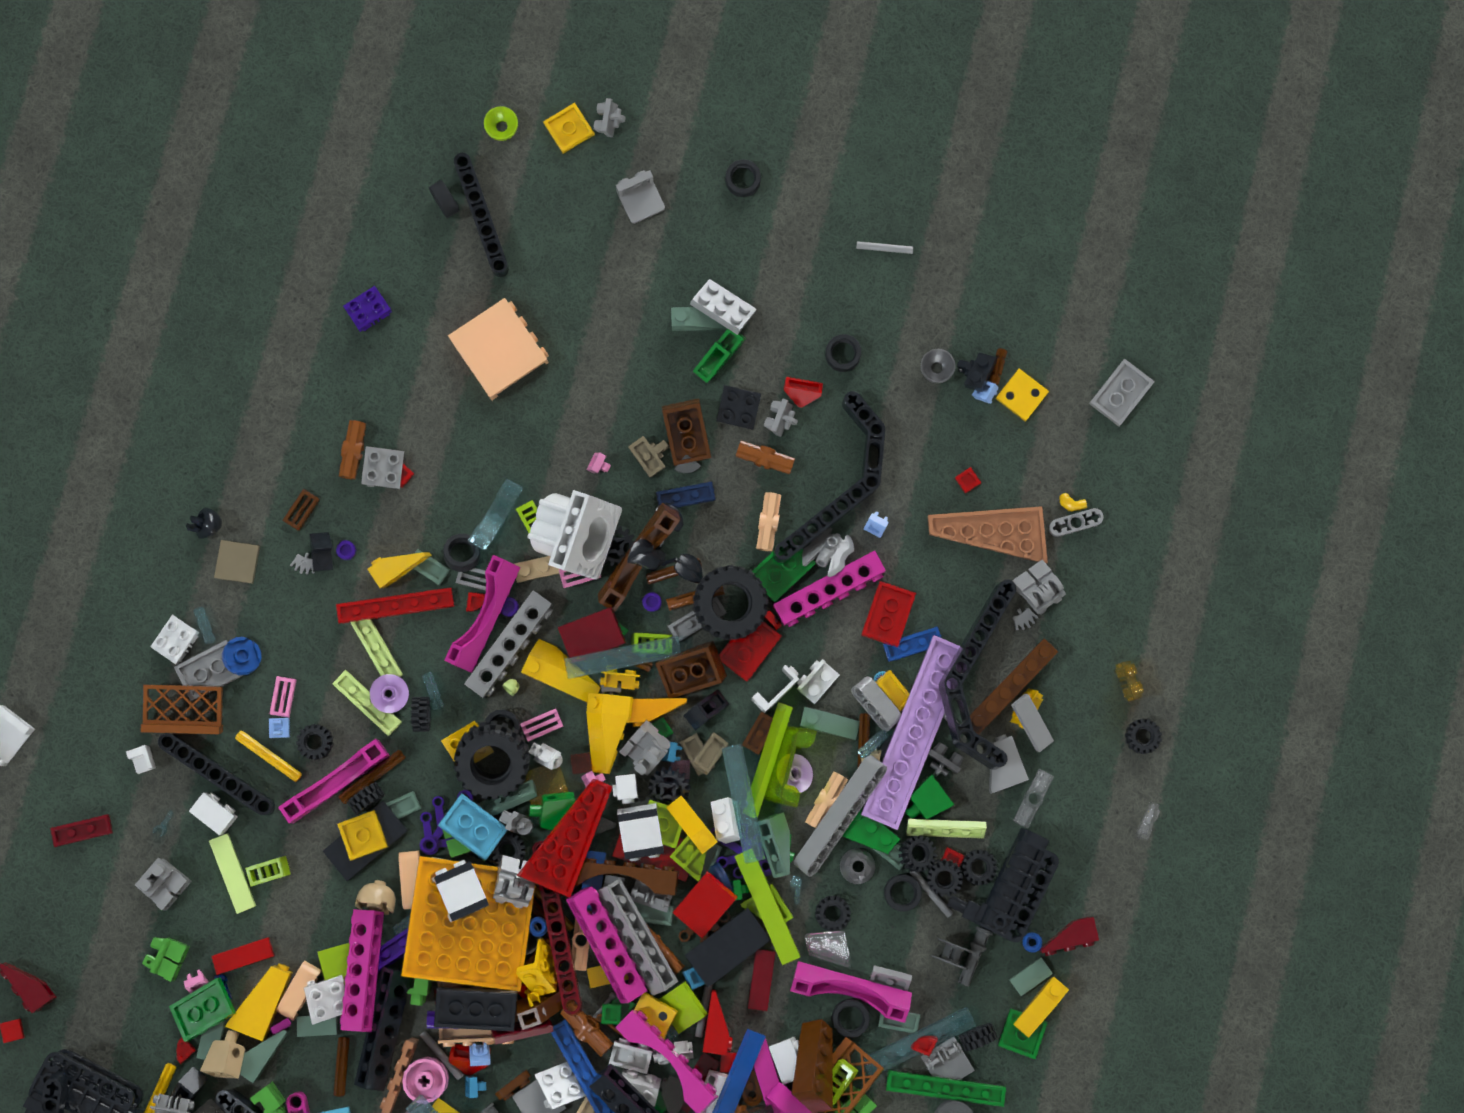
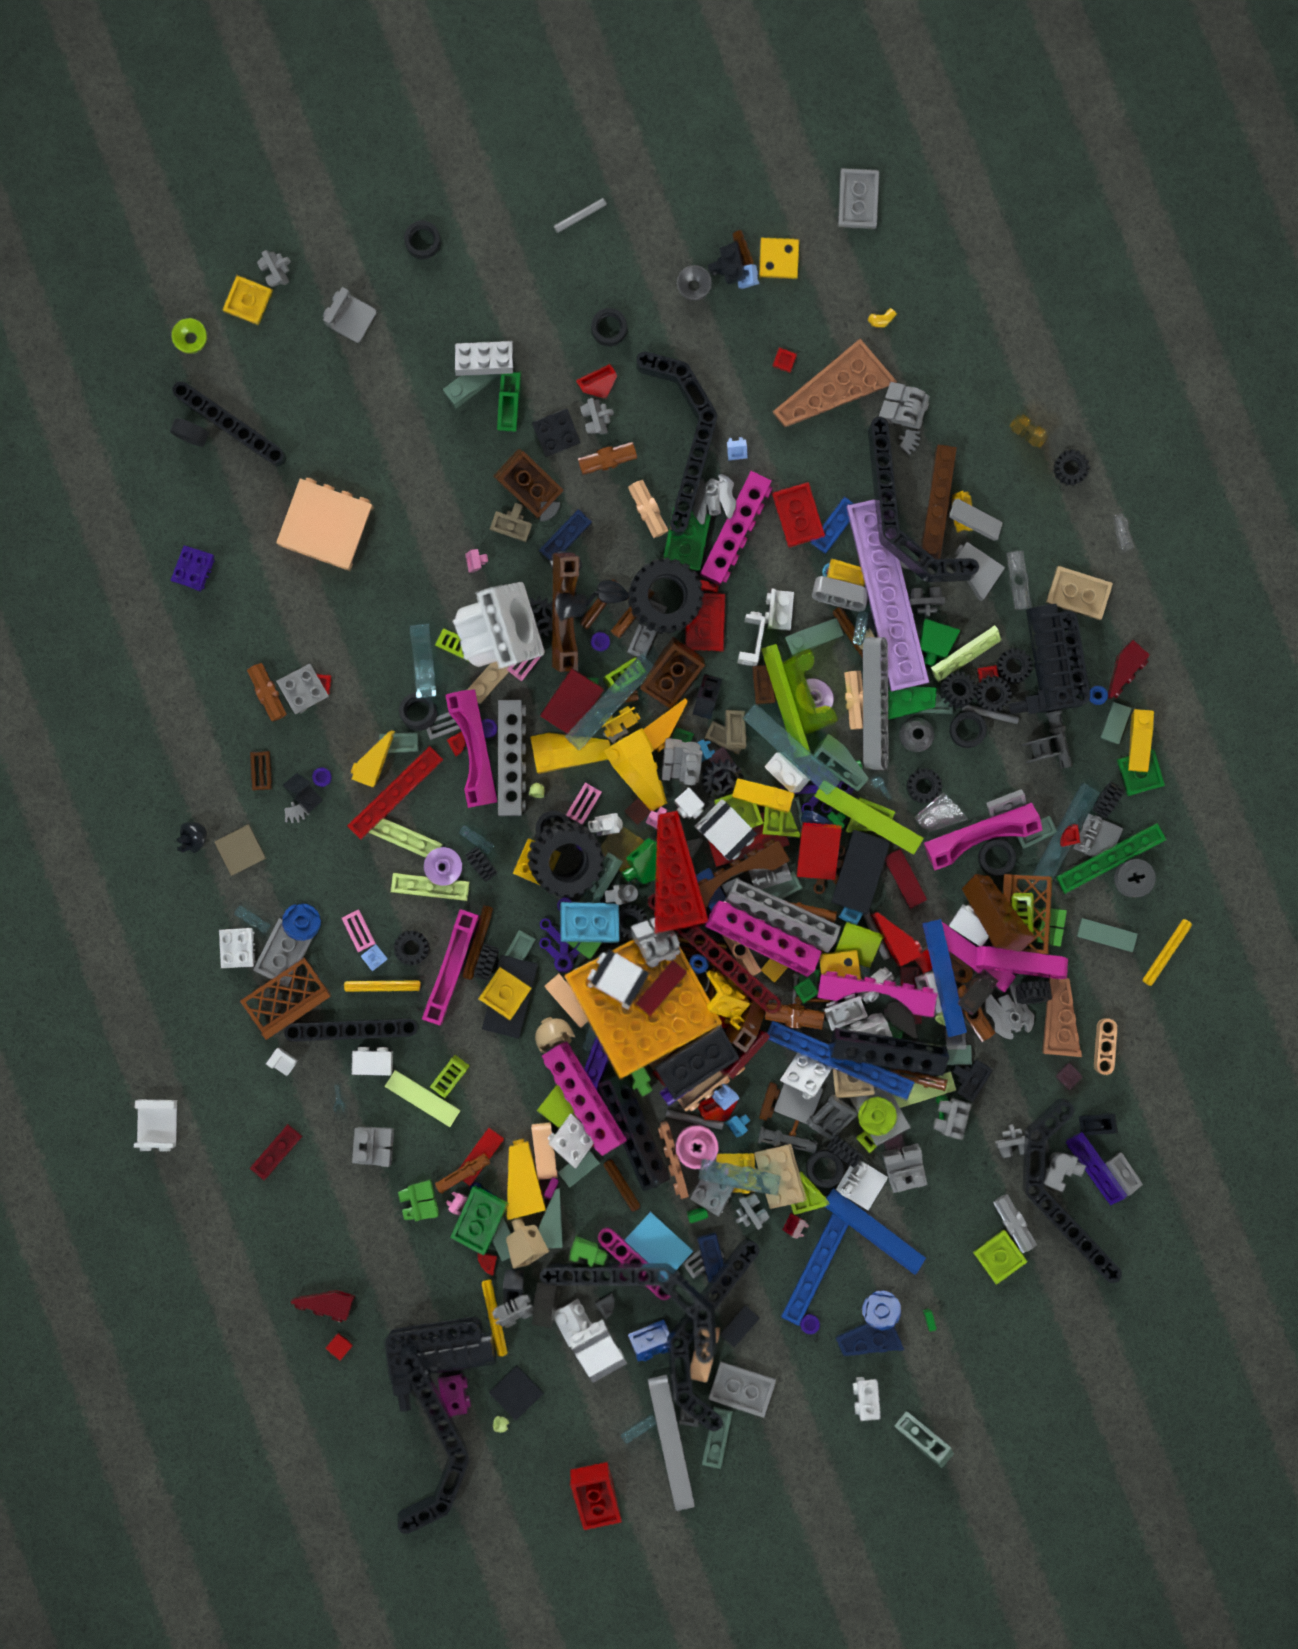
camera: 35 degrees left, 5 degrees up
(225, 960) = (465, 1171): none -> dark orange pin
(490, 924) = (661, 988): none -> dark red tile
(1076, 845) = (1079, 593): none -> tan plate
(1088, 513) = (900, 318): light grey beam -> none

